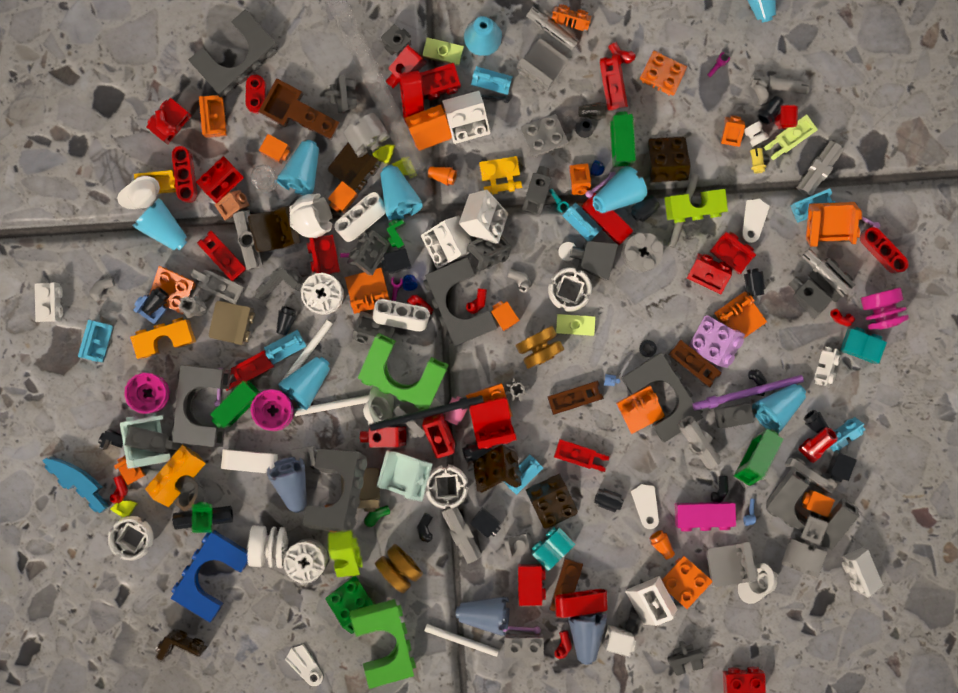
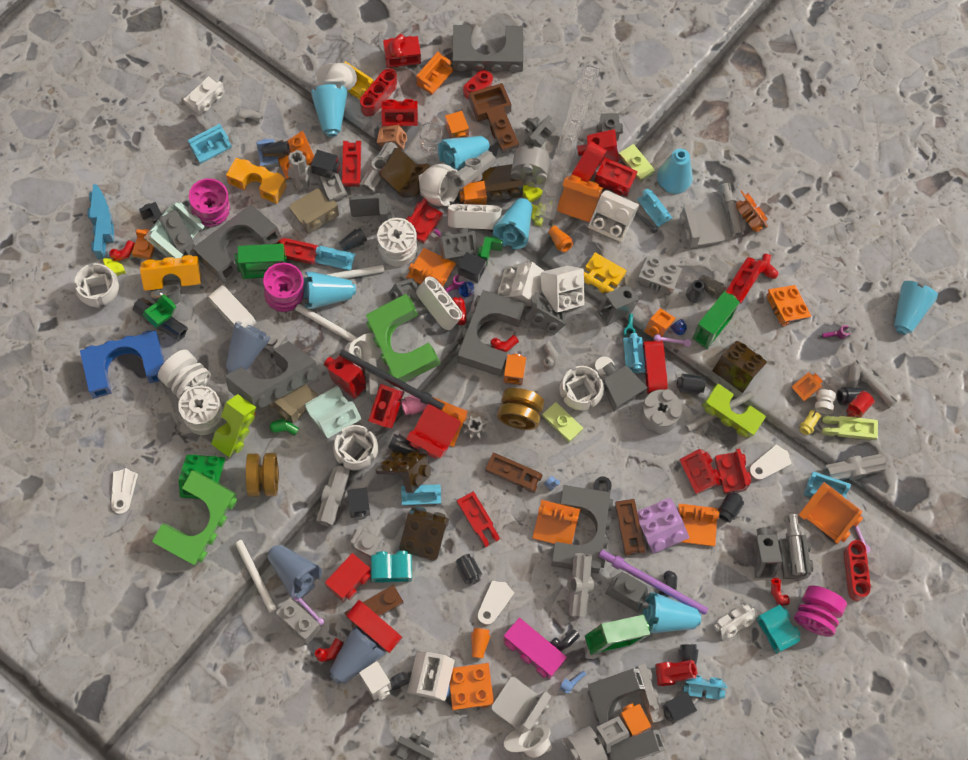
camera: 40 degrees right, 20 degrees down
(181, 640) = (46, 380): dark brown bracket -> none
(206, 280) = (325, 164): none -> black brick
(326, 180) = (473, 169): none -> light grey piece
(423, 530) = (307, 468): black arm -> none
(620, 191) = (682, 351): medium azure cone -> none

